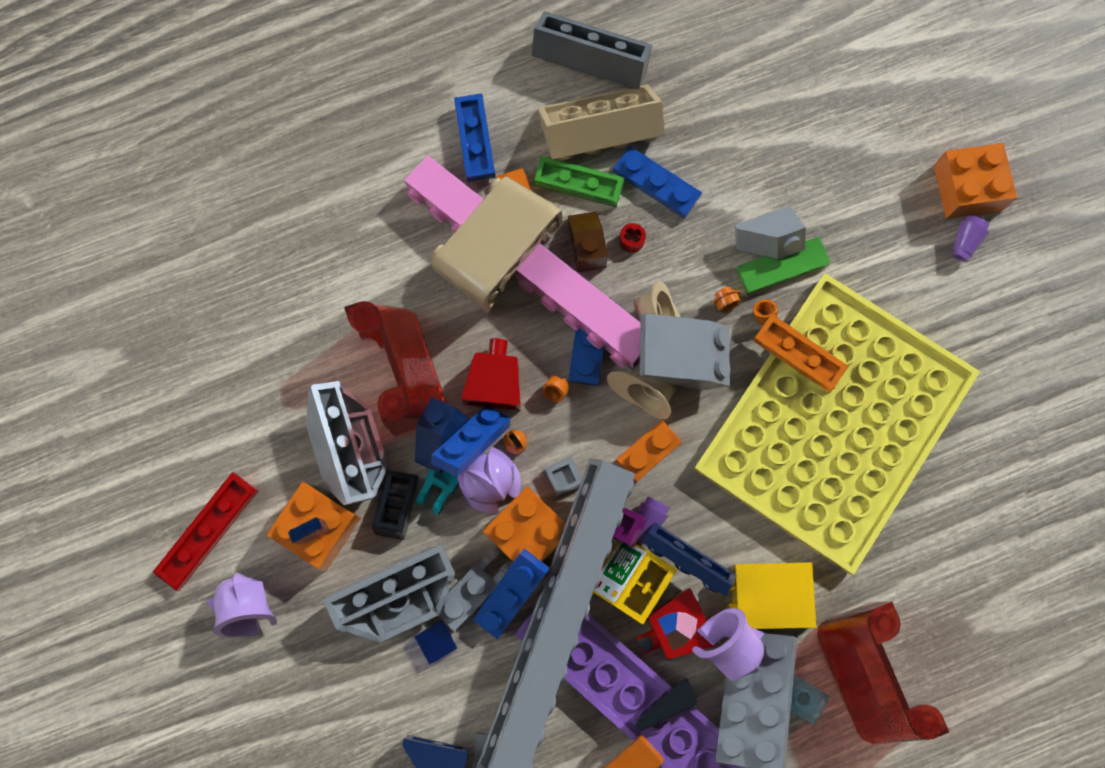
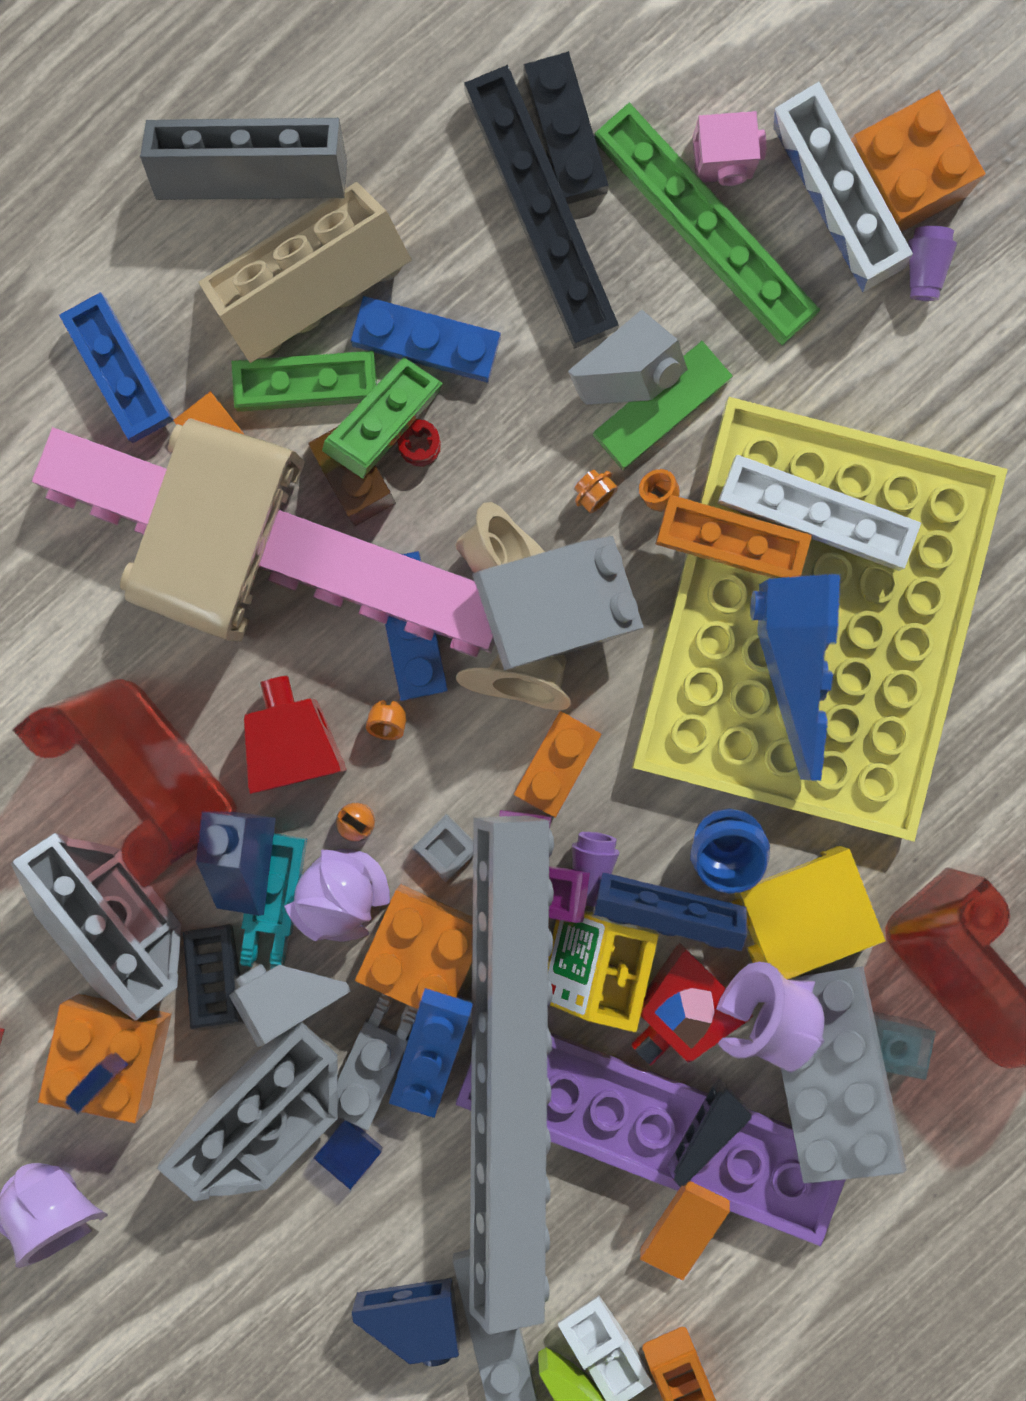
camera: 25 degrees left, 10 degrees up
(434, 525) = (281, 999): none -> light grey slope
(470, 441) = (287, 854): blue plate -> none
(617, 213) = (382, 417): none -> bright green tile
(737, 537) = (730, 851): none -> blue helmet
(749, 133) = (541, 206): none -> black plate
(778, 95) = (565, 127): none -> black plate
(820, 416) = (794, 629): none -> blue wedge
(843, 175) = (706, 224): none -> bright green tile
(859, 355) = (819, 512): none -> white plate
(869, 135) = (728, 147): none -> bright pink brick
(929, 179) = (841, 187): none -> white brick

